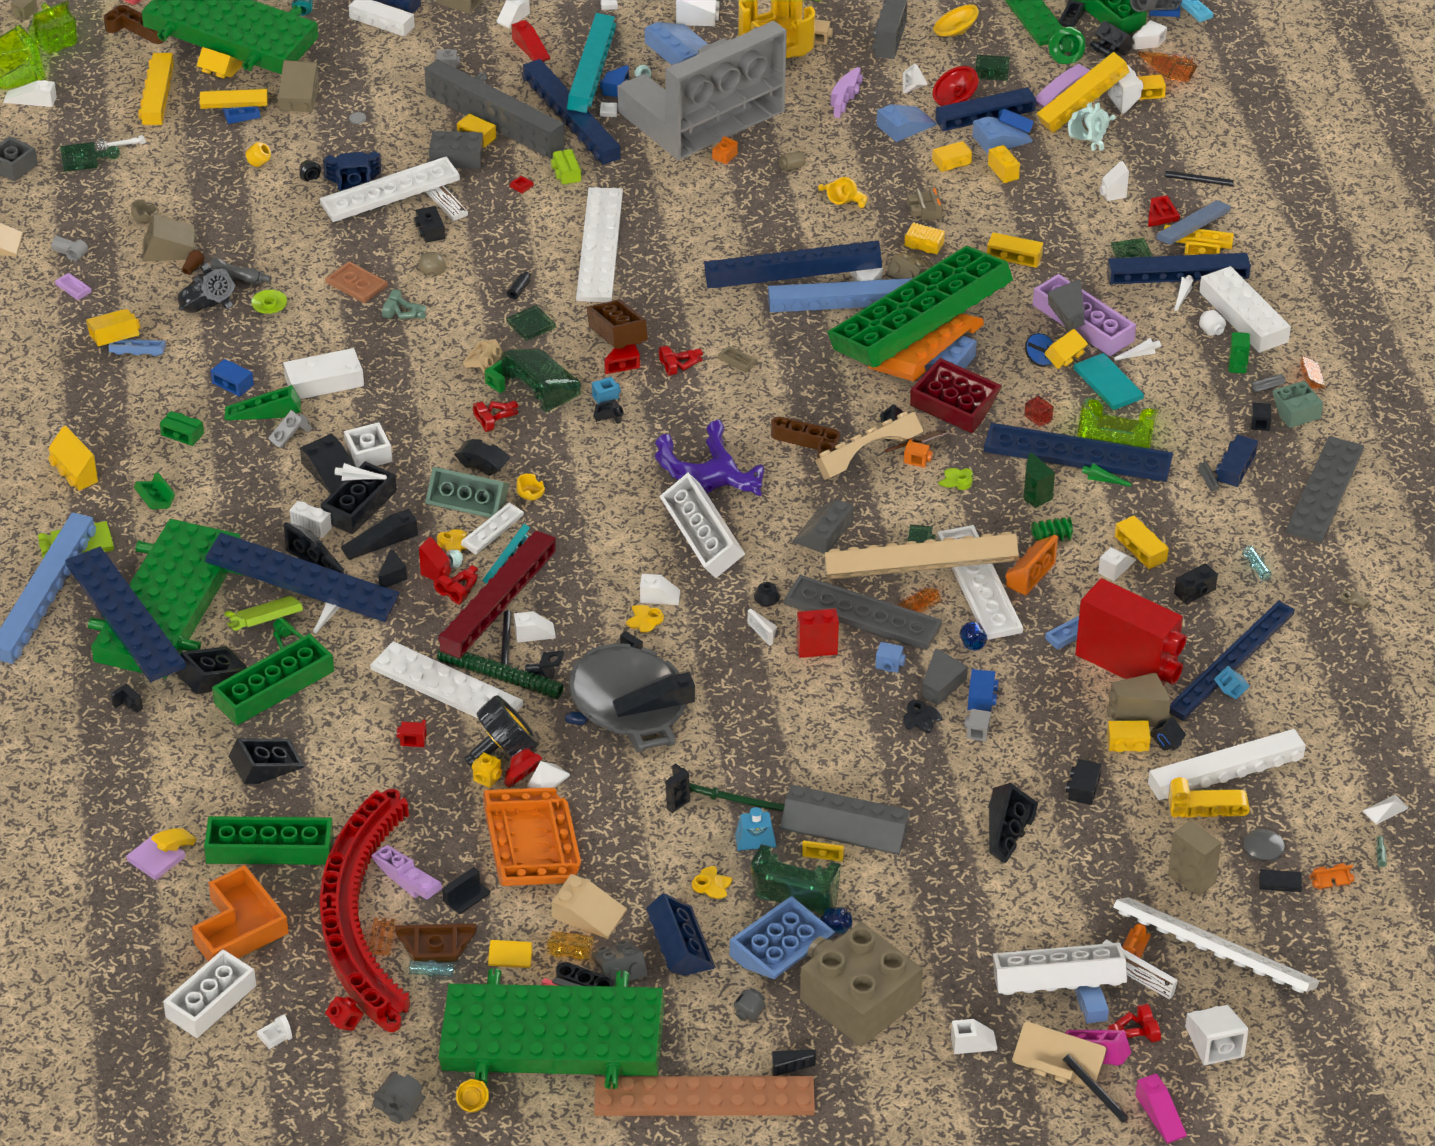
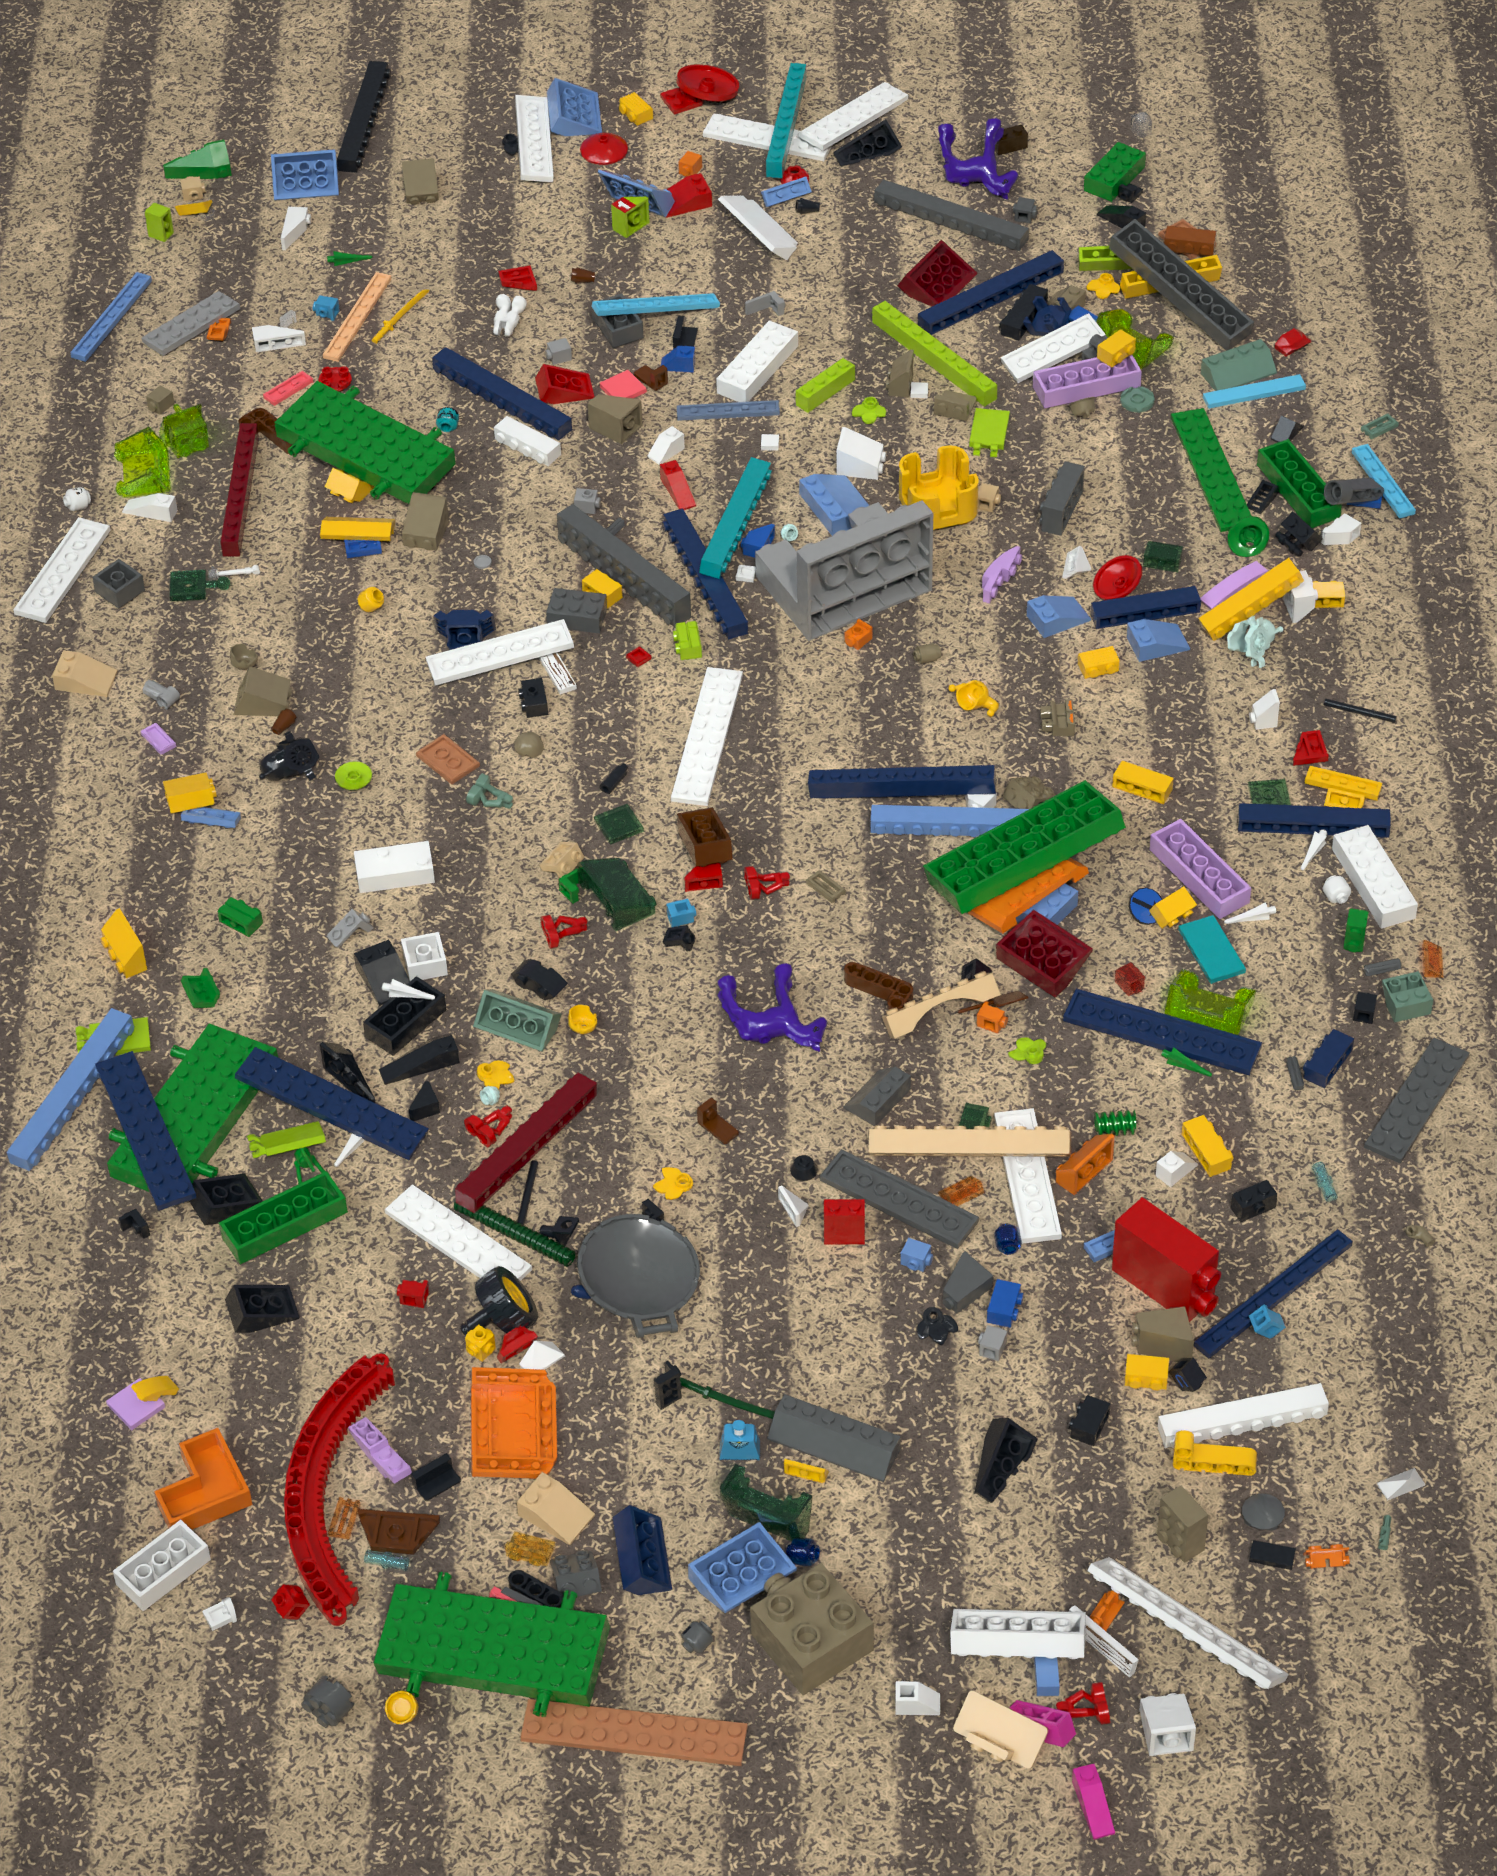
camera: 10 degrees right, 5 degrees up
(114, 74) = (239, 490): none -> dark red brick
(156, 89) = (280, 510): yellow brick -> none
(232, 377) = (301, 862): blue brick -> none
(247, 275) = (318, 737): dark grey piece -> none
(266, 406) = (329, 899): green slope -> none
(268, 840) = (247, 1400): green brick -> none
(309, 170) = (420, 622): black cone -> none
(311, 518) = (352, 1035): white brick -> none
(433, 560) = (467, 1097): red slope -> none
(492, 528) = (535, 1063): white tile -> none
(510, 953) = (468, 1552): yellow slope -> none
(511, 549) = (549, 1090): teal plate -> none
(532, 627) = (556, 1183): white slope -> none
(658, 590) = (692, 1153): white slope -> none
(661, 693) = (671, 1274): black wedge -> none
(668, 561) = (713, 1123): none -> reddish brown bracket
(702, 525) = (749, 1083): white brick -> none
(713, 884) = (688, 1494): yellow plate -> none
(792, 1060) = (726, 1704): black slope -> none
(924, 238) = (1049, 760): yellow brick -> none
(956, 21) = (1134, 496): yellow dish -> none
(1003, 164) = (1151, 676): yellow brick -> none
(1015, 120) = (1174, 625): blue slope -> none
(1038, 482) = (1109, 1066): dark green slope -> none
(1068, 304) = (1182, 858): dark grey slope -> none
(1095, 1088) = (1030, 1770): black bar -> none
(1171, 66) = (1355, 571): clear orange slope -> none
(1193, 222) = (1341, 766): sand blue tile -> none

